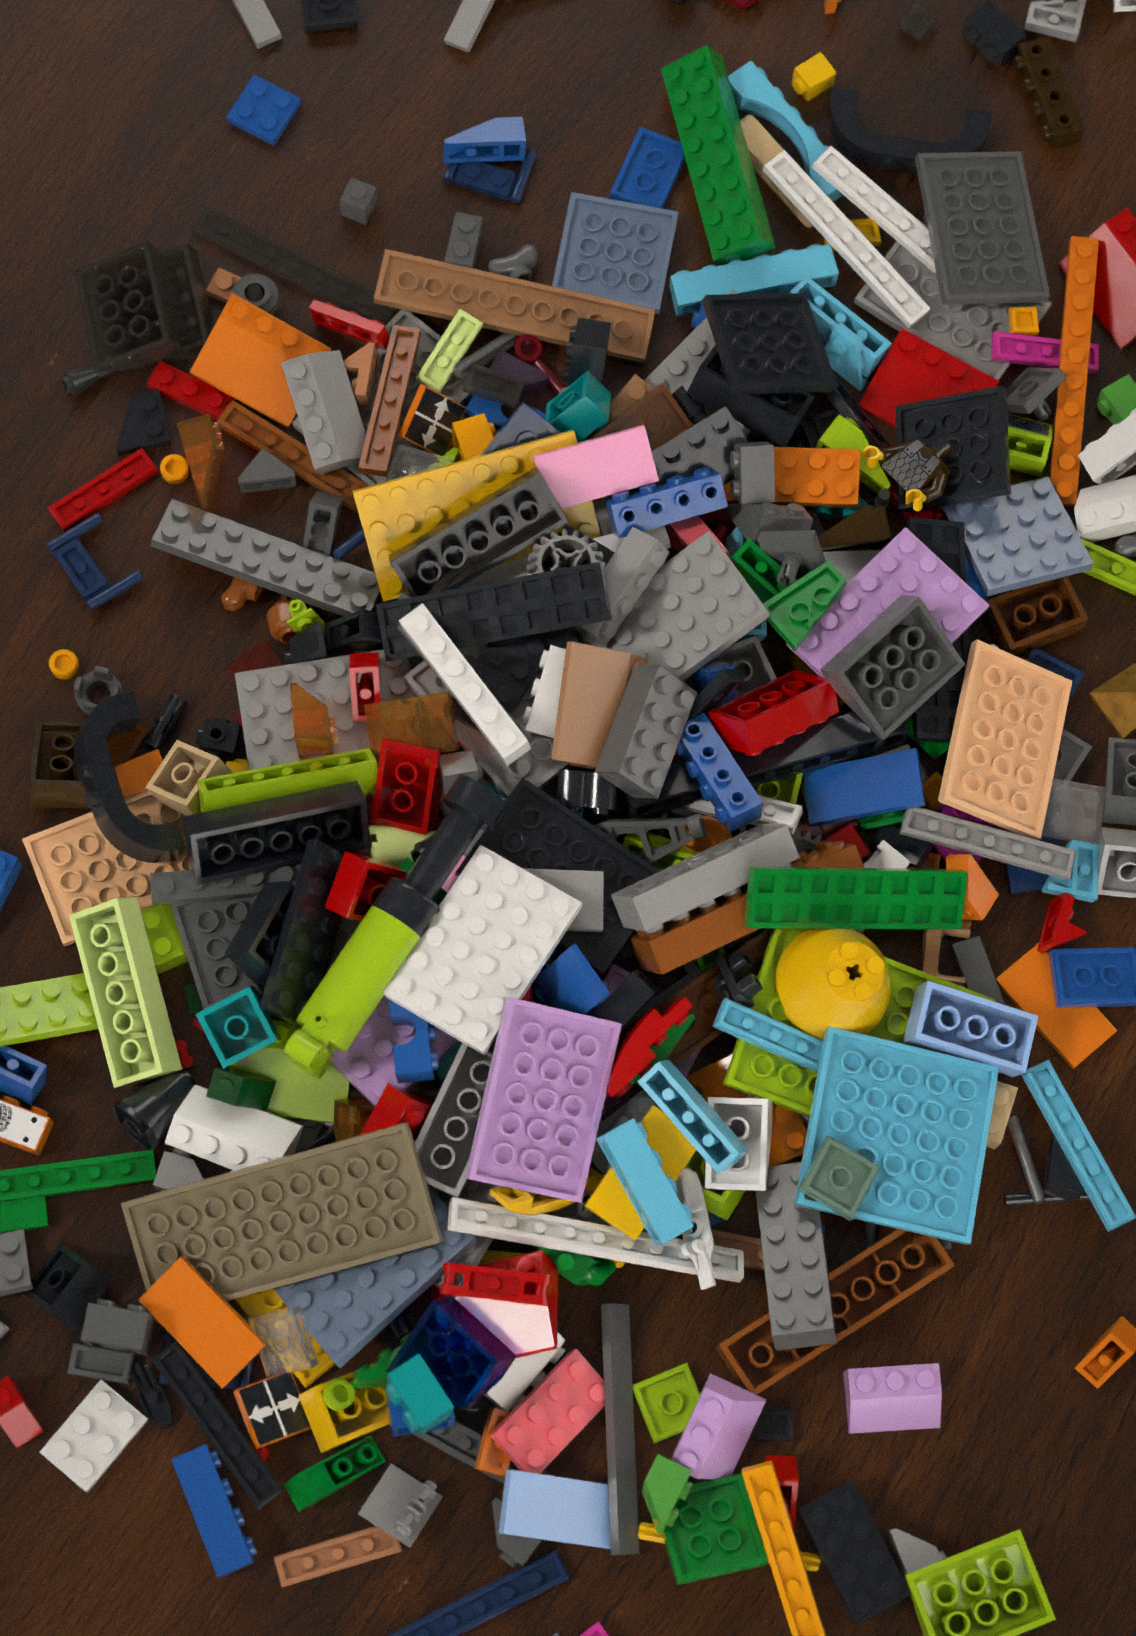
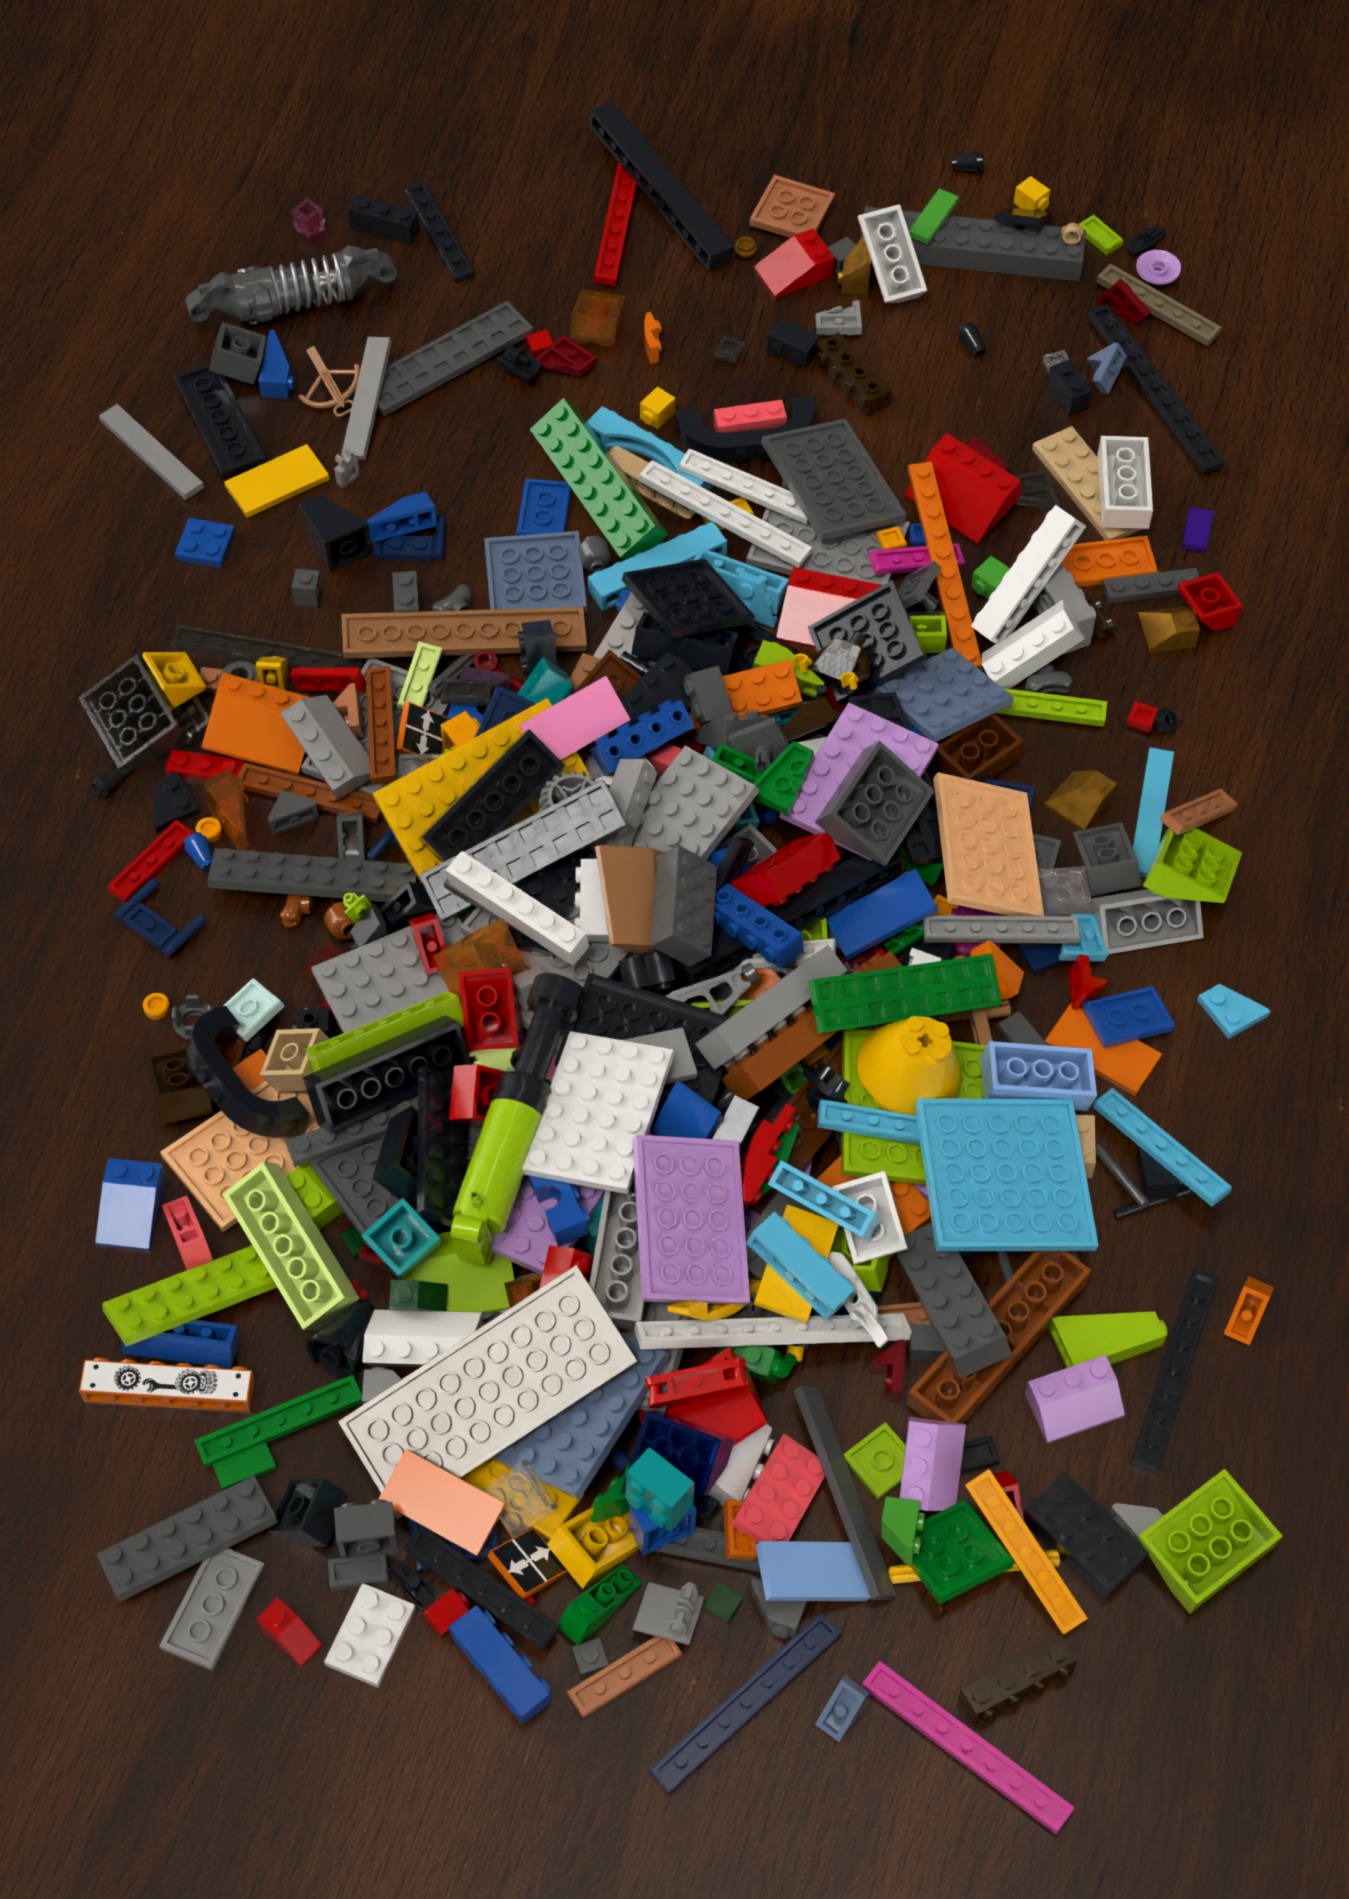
camera: 10 degrees left, 15 degrees down
(25, 939) = (187, 1232): none -> coral slope
(157, 493) = (198, 848): none -> blue cone
(161, 700) = (253, 1008): none -> light aqua tile
(176, 1437) = (446, 1611): none -> red brick
(182, 277) = (175, 675): none -> yellow slope
(292, 300) = (273, 671): none -> yellow slope
(308, 1526) = (590, 1657): none -> dark grey plate
(313, 727) = (392, 979): clear orange slope -> none
(338, 1394) = (584, 1526): lime tile -> none
(364, 52) = (276, 480): none -> yellow tile
(406, 141) = (334, 532): none -> black slope
(443, 61) = (347, 469): none -> light grey plate
(460, 1508) = (723, 1602): none -> dark green tile
(687, 246) = (594, 553): none -> dark grey head
(716, 1301) = (892, 1365): none -> dark red slope
(753, 1289) = (924, 1344): none -> dark grey brick
(838, 1178) = (967, 1216): sand green tile -> none
(913, 121) = (750, 417): none -> coral brick
(946, 1339) = (1113, 1335): none -> lime slope
(1009, 1393) = (1174, 1371): none -> black tile
(1054, 320) = (916, 535): none -> blue tile

